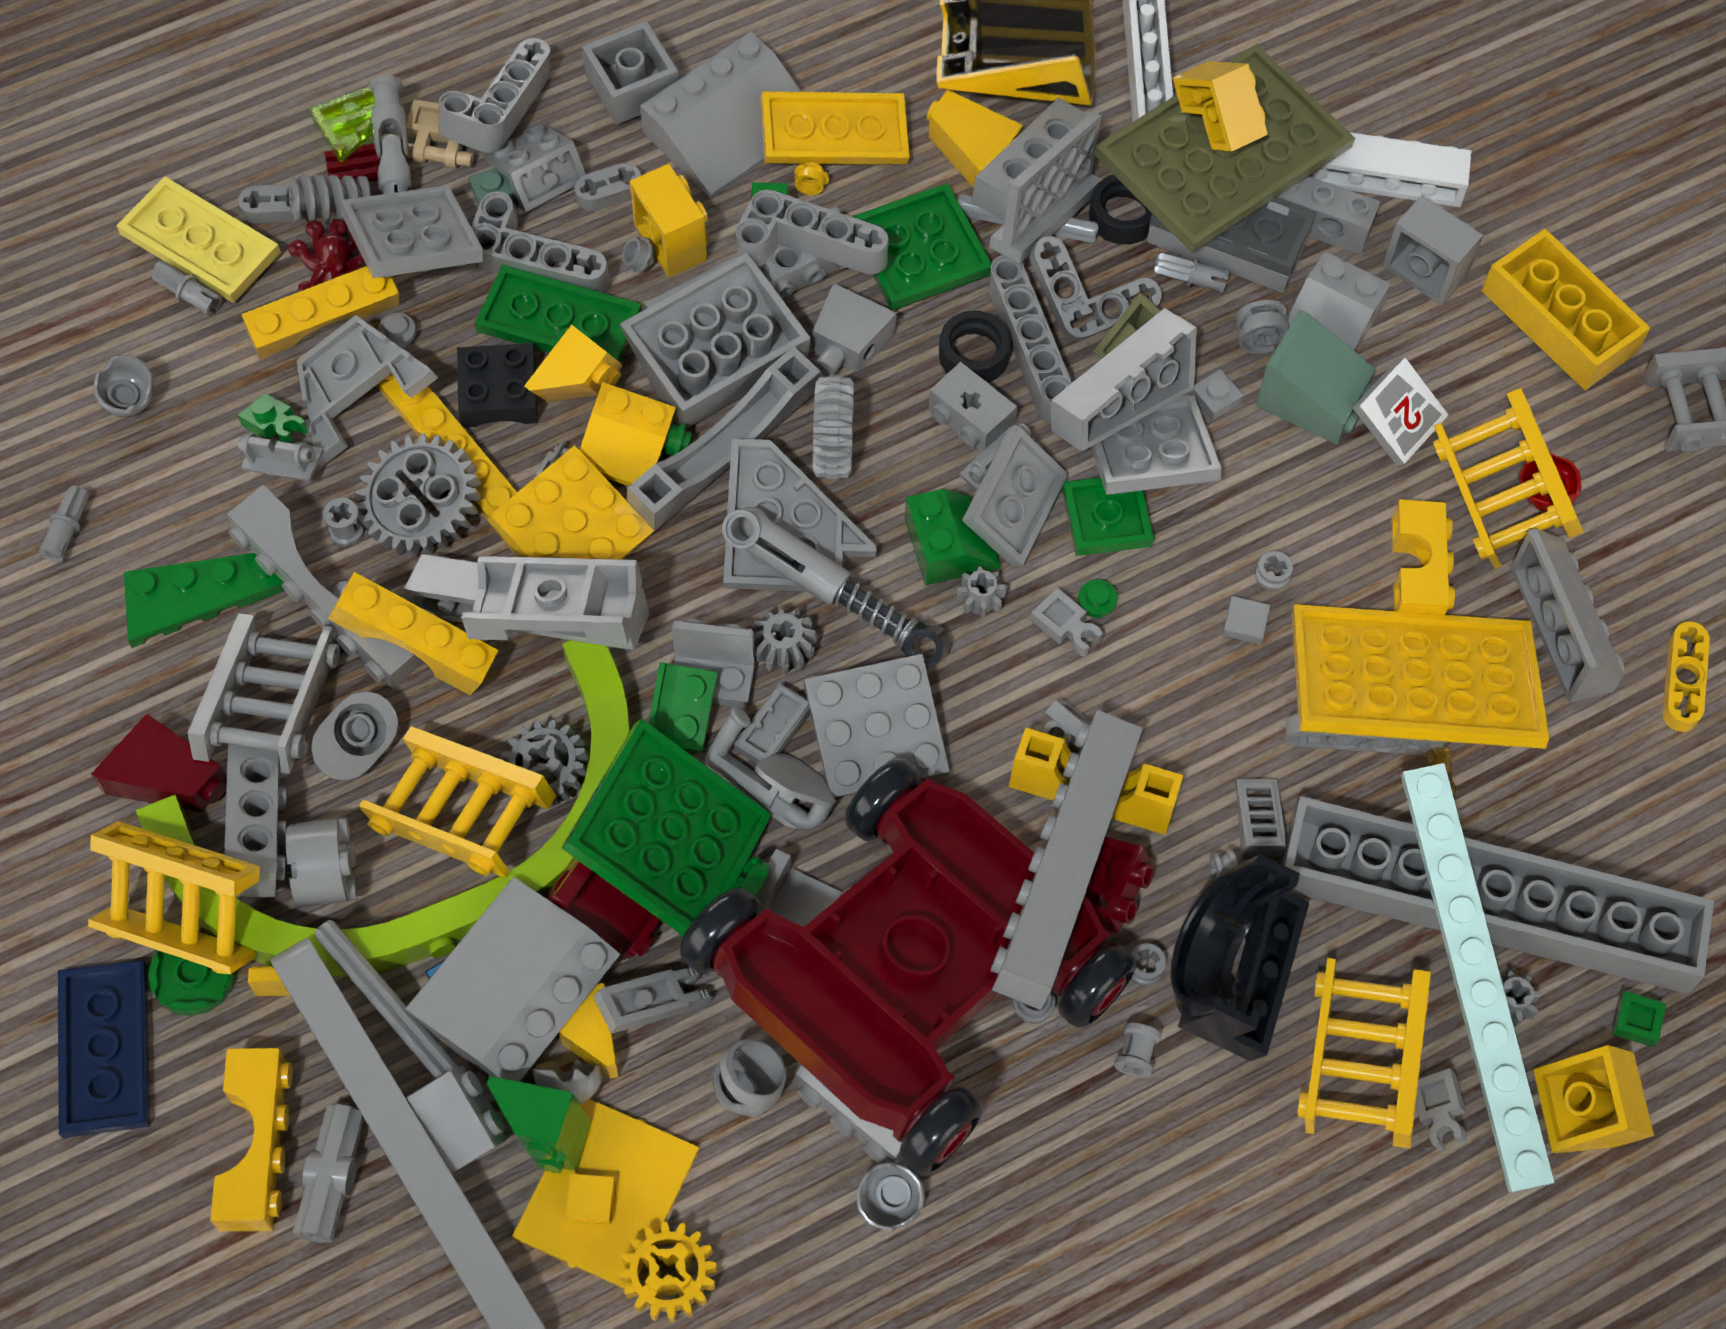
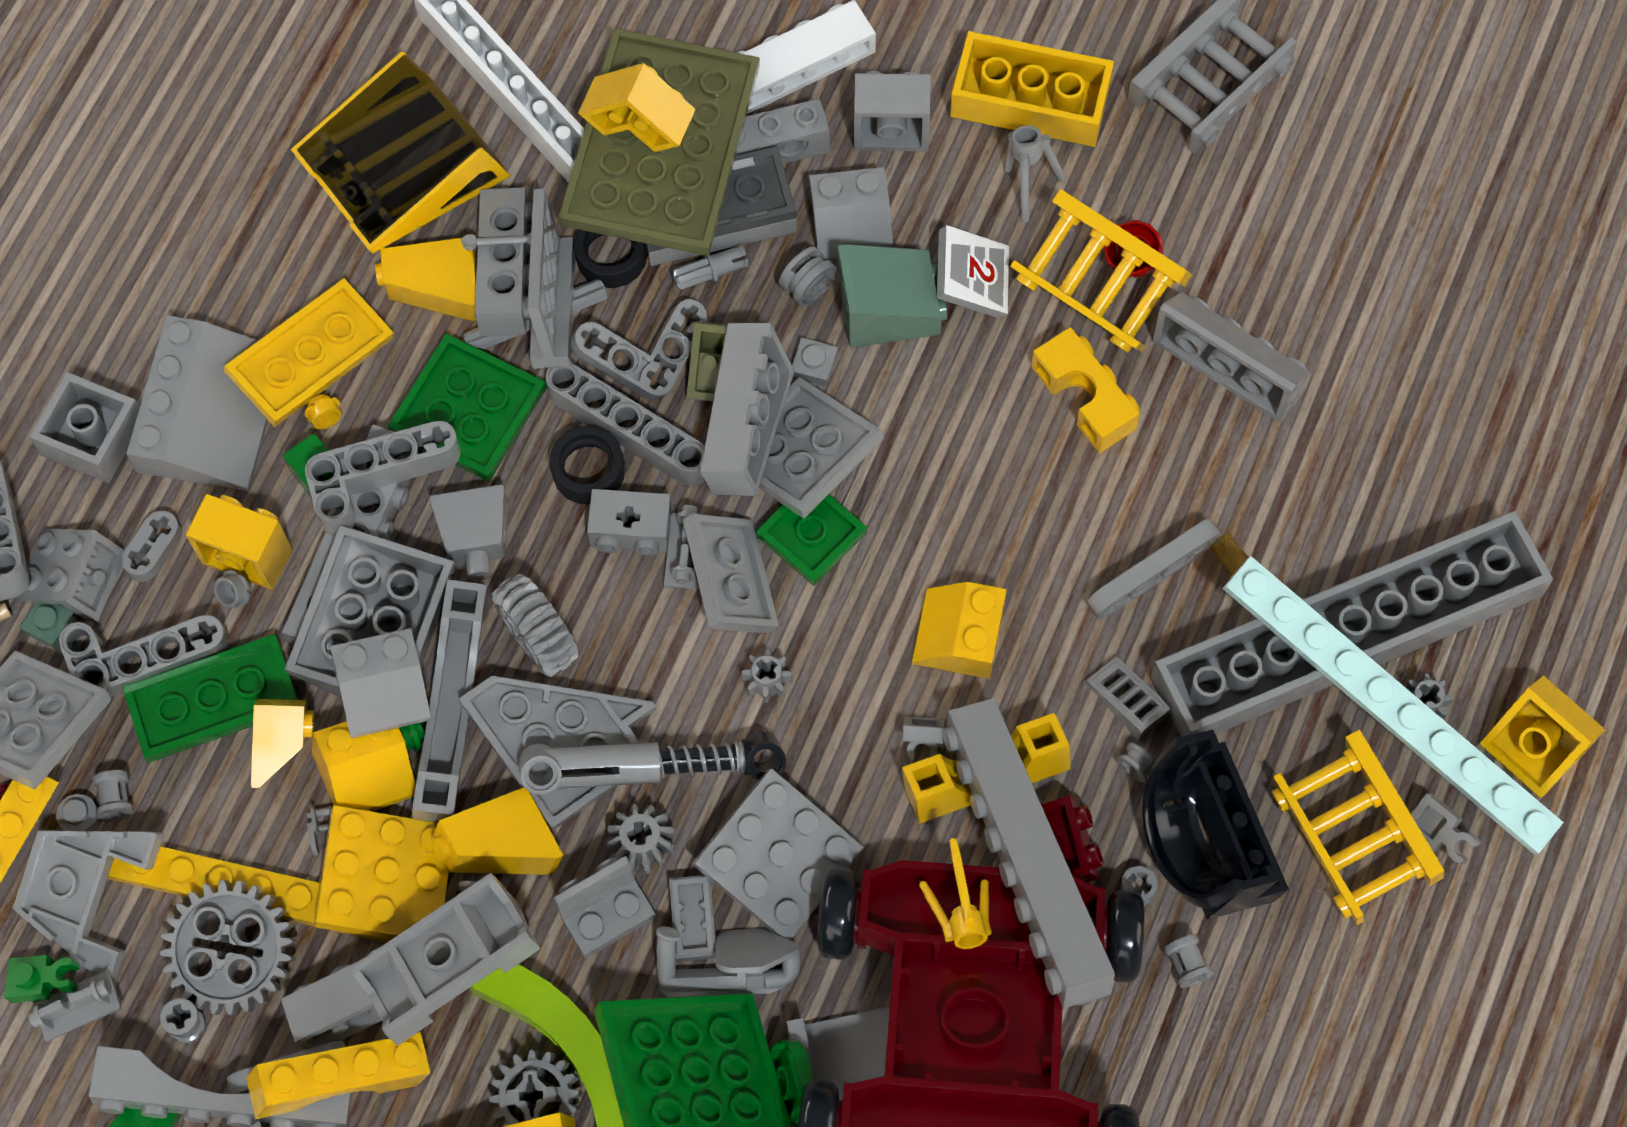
camera: 35 degrees left, 5 degrees up
(431, 334) = (112, 795): none -> light grey bush
(494, 384) = (209, 797): black brick -> none
(675, 558) = (498, 838): none -> yellow slope
(679, 378) = (380, 683): none -> light grey slope
(683, 704) = (607, 959): green plate -> none
(942, 540) = (696, 654): green slope -> none
(970, 871) = (967, 925): none -> yellow plant
(1017, 126) = (470, 242): none -> light grey hinge
(1064, 618) = (846, 649): light grey plate -> none
(1097, 598) = (860, 610): green plate -> none
(1167, 668) = (960, 628): none -> yellow slope
(1246, 620) = (989, 540): light grey tile -> none
(1280, 562) = (980, 492): light grey bush -> none
(1418, 676) = (1160, 491): yellow plate -> none
(1518, 346) = (1027, 147): none -> light grey plant
(1639, 1019) = (1525, 644): green plate -> none
(1674, 688) = (1350, 319): yellow beam -> none

